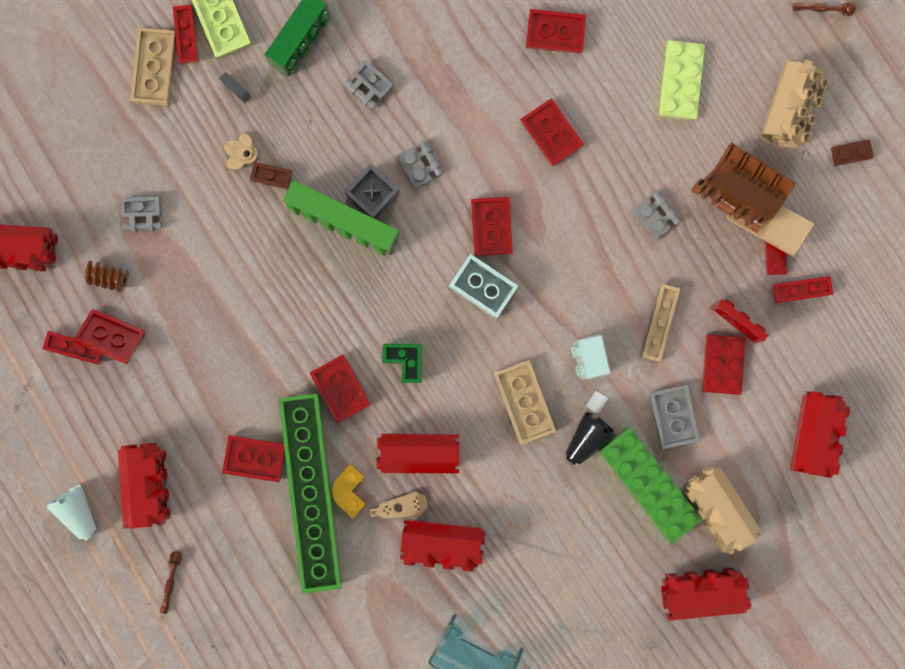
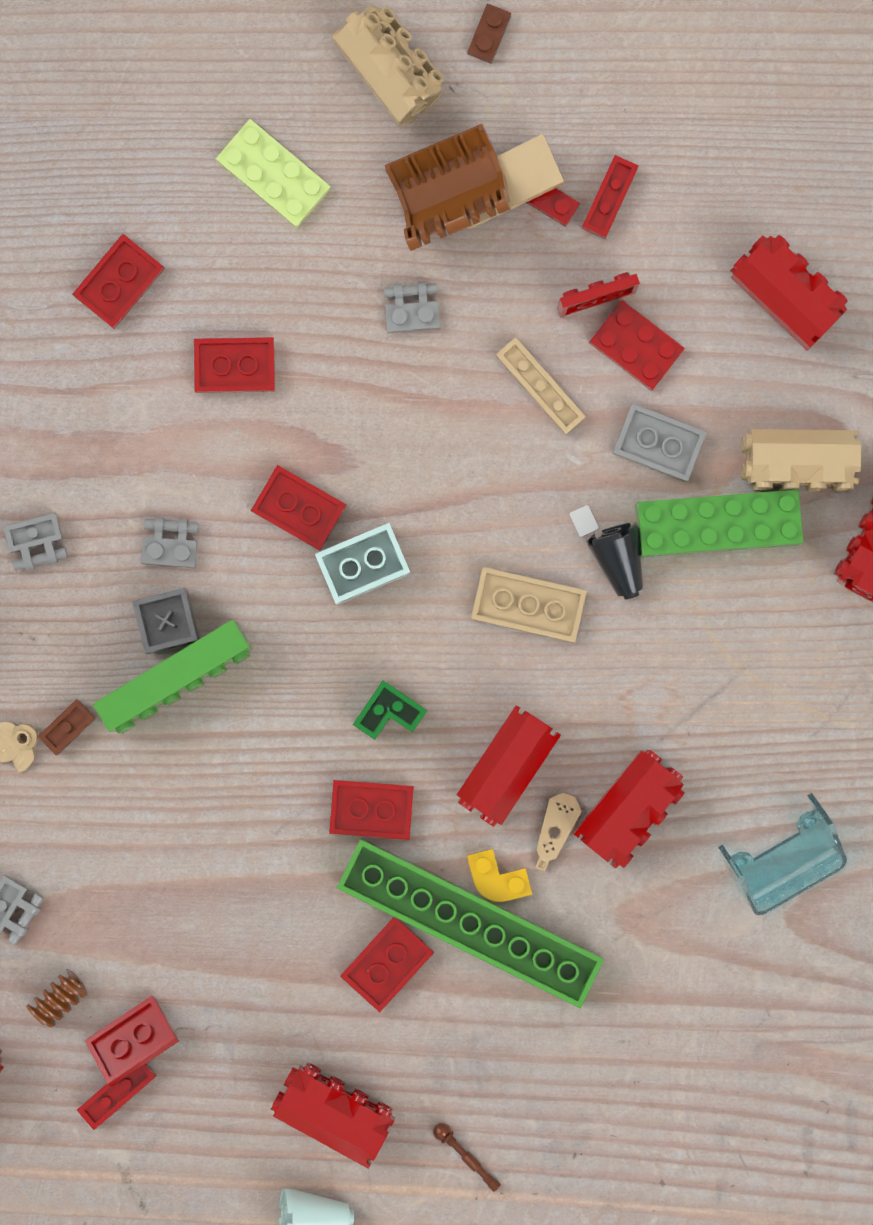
camera: 55 degrees left, 0 degrees up
(590, 357) = (527, 495): light aqua brick -> none

